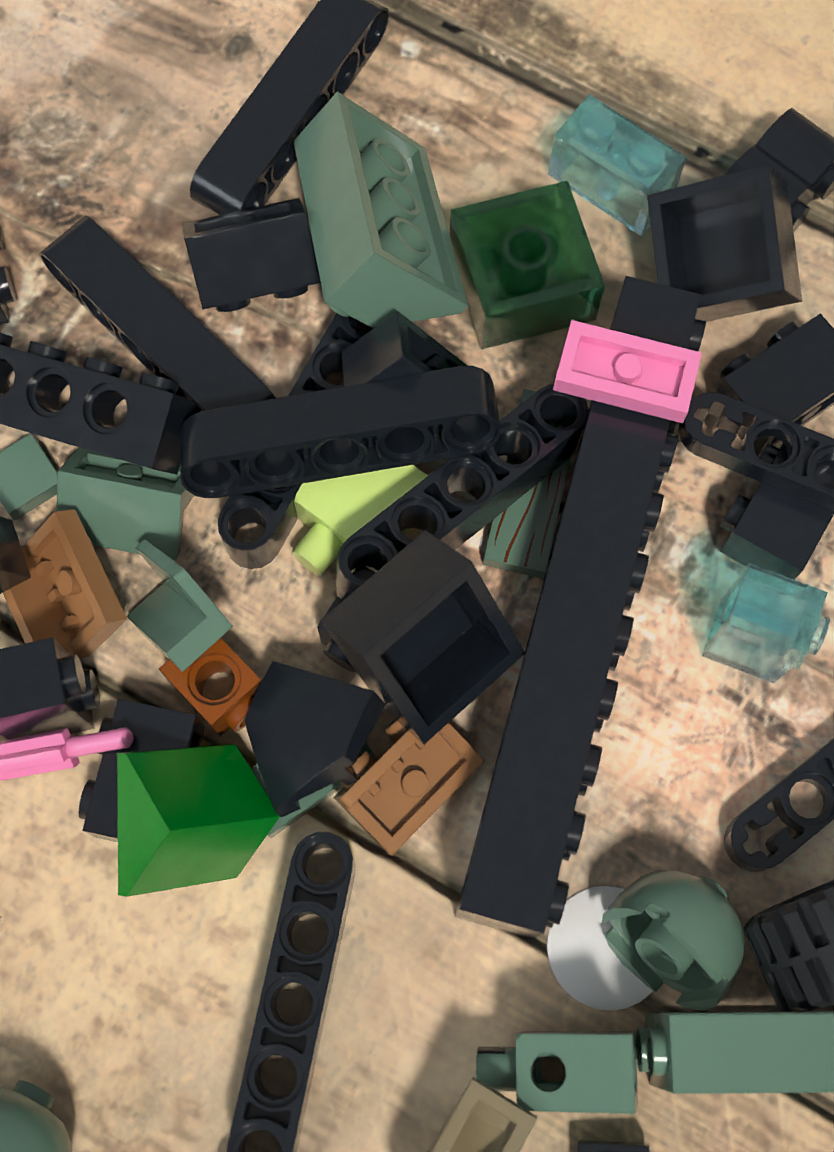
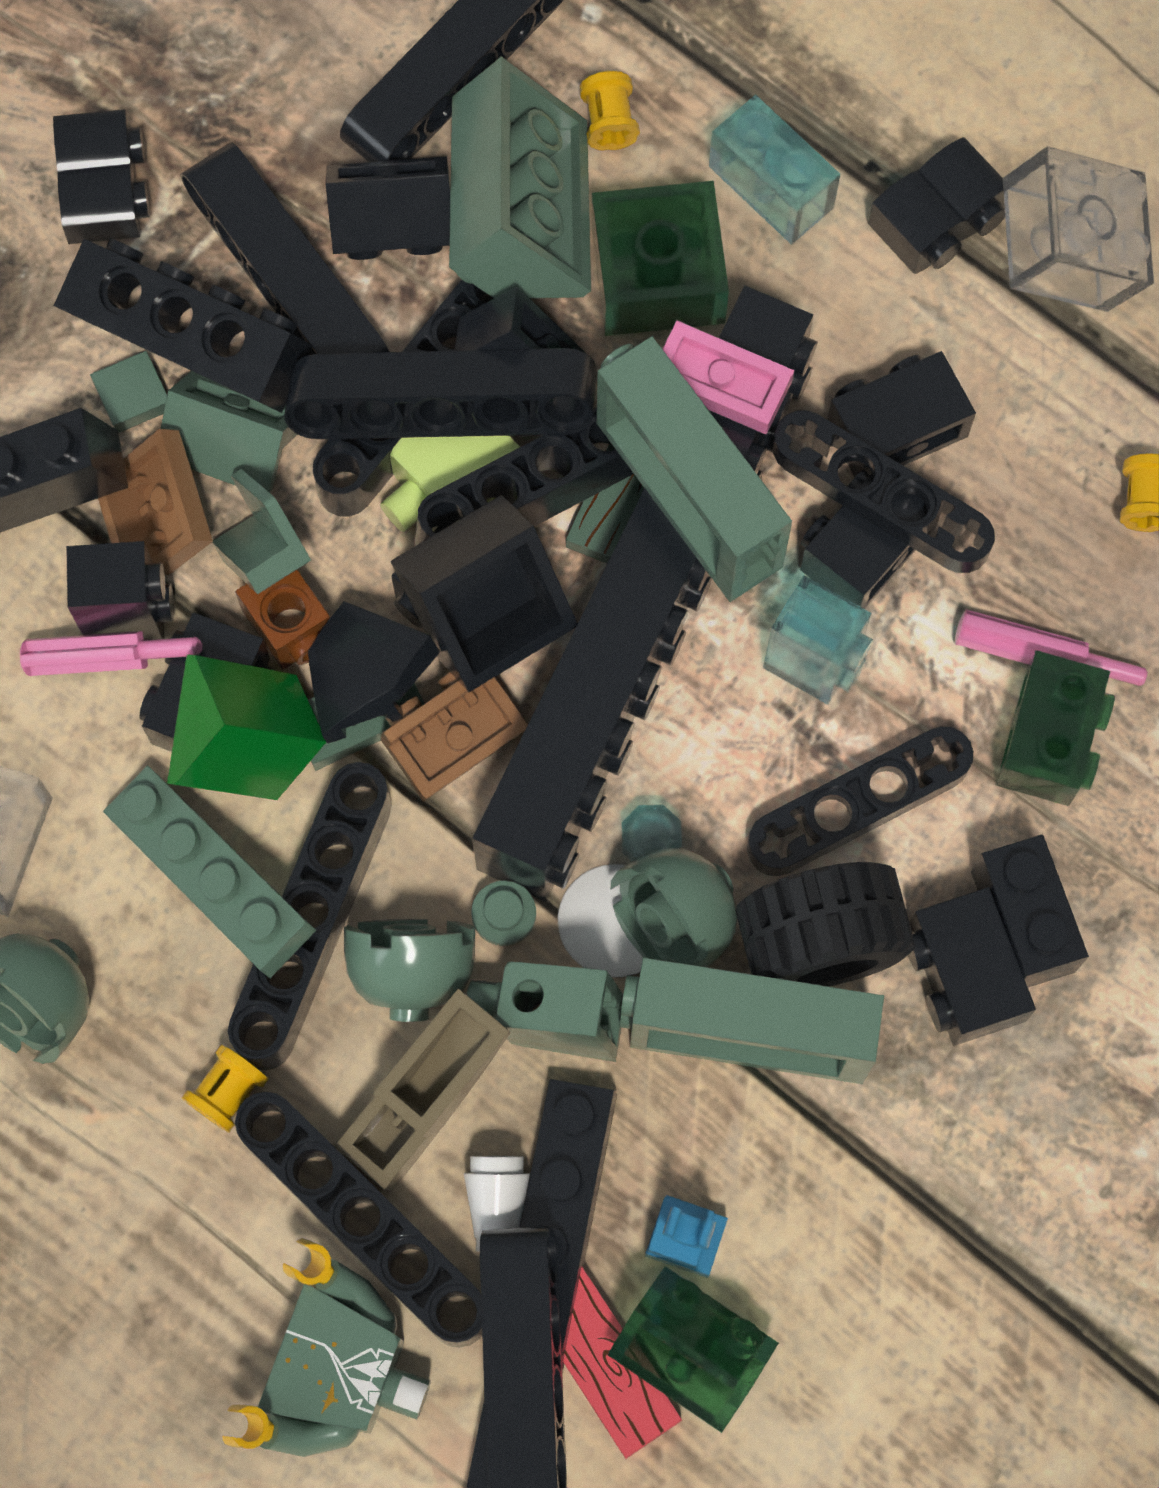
camera: 10 degrees right, 0 degrees up
(181, 981) = (209, 872): none -> sand green plate
(407, 1043) = (408, 964): none -> sand green cylinder
(446, 133) = (609, 110): none -> yellow bush
(494, 963) = (503, 913): none -> sand green plate
(623, 469) = (691, 468): none -> sand green window
(628, 852) = (649, 830): none -> clear light blue tile
(728, 242) = (860, 269): black piece -> none

